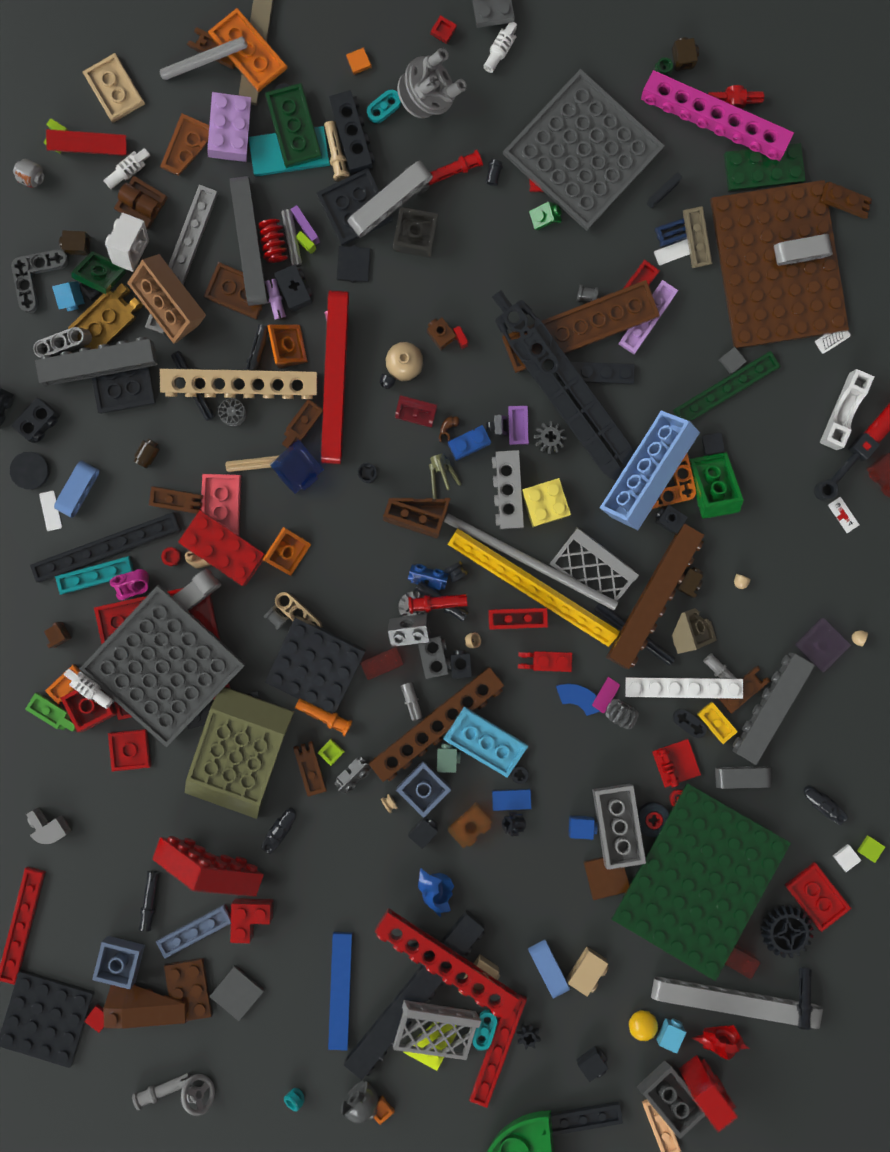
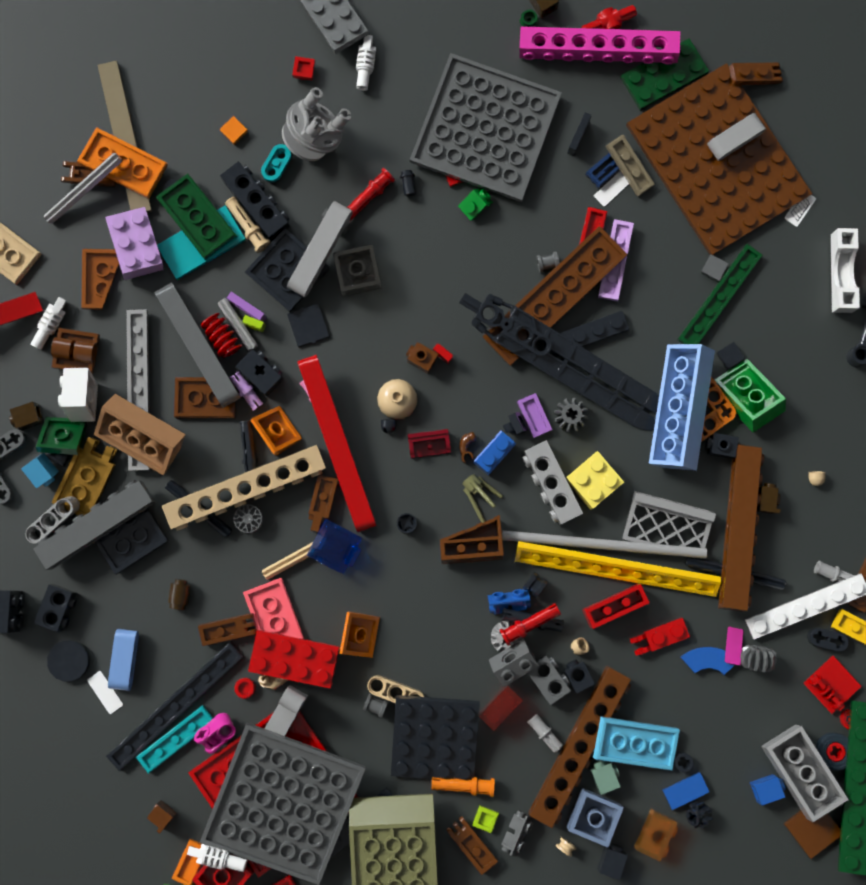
camera: 25 degrees left, 5 degrees down
(692, 632) = (792, 548): dark tan slope -> none

